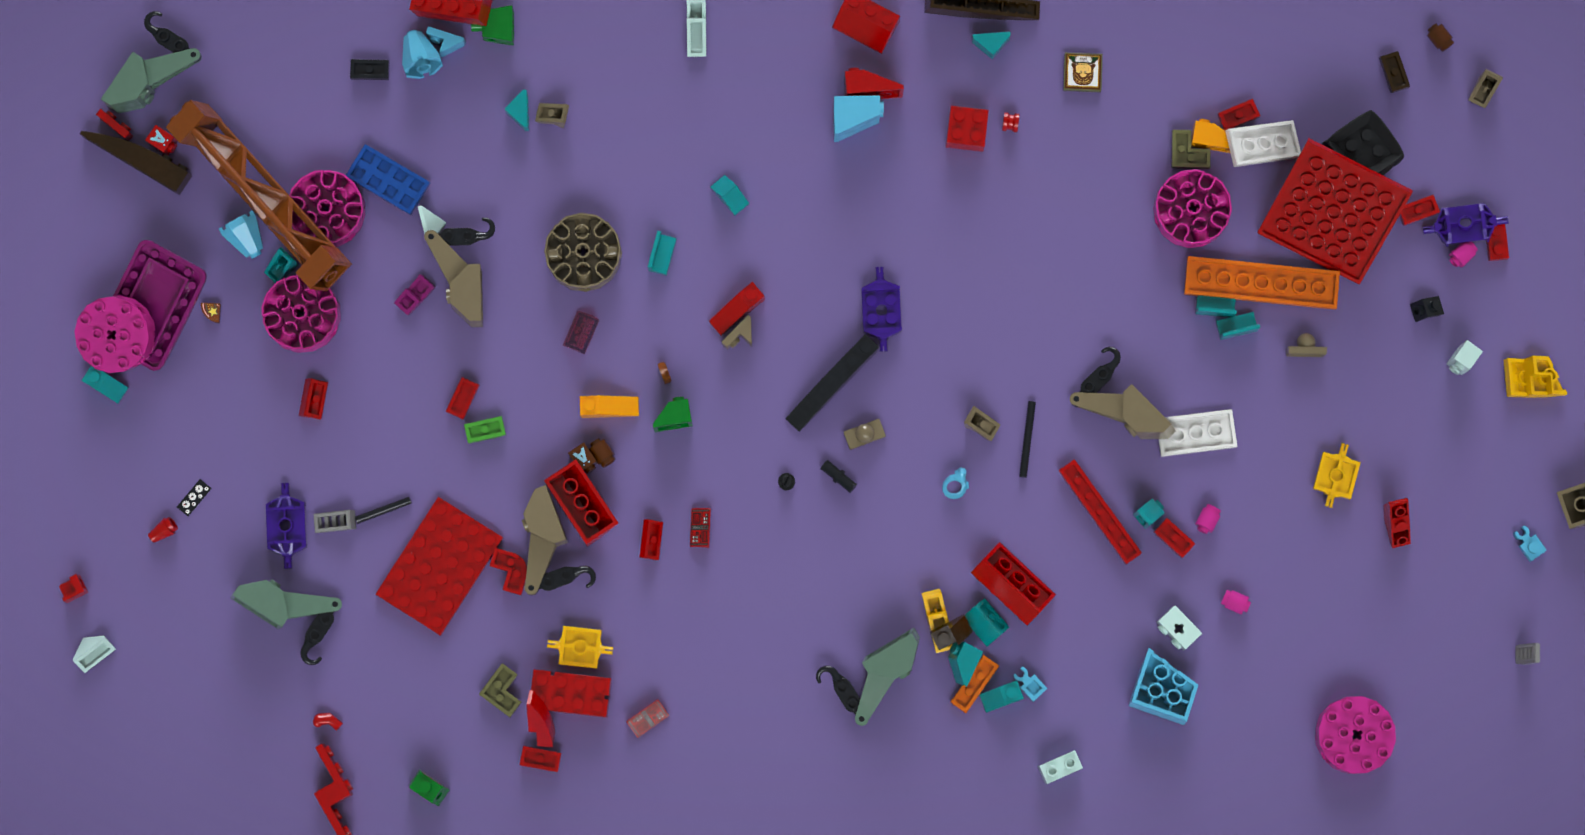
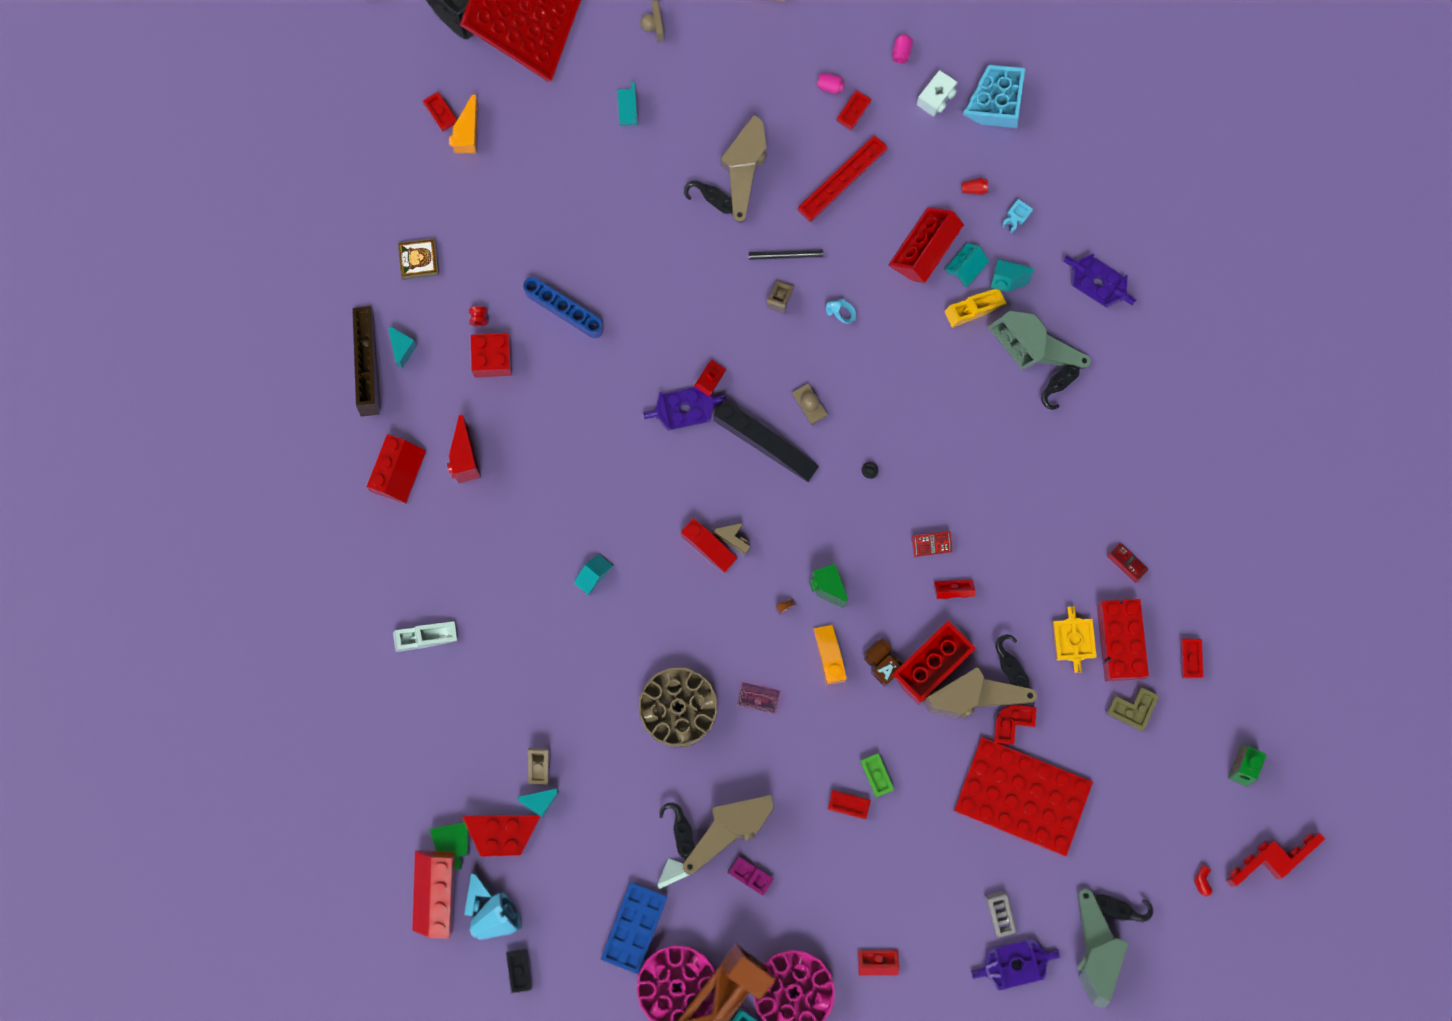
camera: 100 degrees left, 5 degrees down
(382, 510) = (978, 865): black bar -> none
(496, 70) = (500, 833): none -> red wing
(540, 720) = (1159, 662): red slope -> none
(661, 254) = (665, 630): teal panel -> none
(838, 476) = (855, 421): black pin -> none
(855, 114) = (493, 462): medium azure slope -> none
(906, 338) = (710, 377): none -> red plate
(951, 632) = (986, 290): dark brown slope -> none
(960, 749) = (1090, 268): none -> dark purple plate
(967, 695) = (1042, 272): orange tile -> none
(1001, 696) = (1034, 237): teal slope -> none
(1010, 198) = (558, 300): none -> blue beam
(1060, 767) = (1088, 176): light aqua brick -> none
(1068, 648) = (977, 186): none -> red cone
(1149, 513) = (836, 133): teal slope -> none
(1183, 156) = (484, 156): olive plate -> none
(1200, 192) = (555, 134): dark pink brick -> none
(1200, 433) = (749, 99): white tile -> none
(1237, 326) = (644, 84): teal panel -> none
(1262, 282) = (598, 69): orange plate -> none
(1263, 143) = (465, 83): white tile -> none

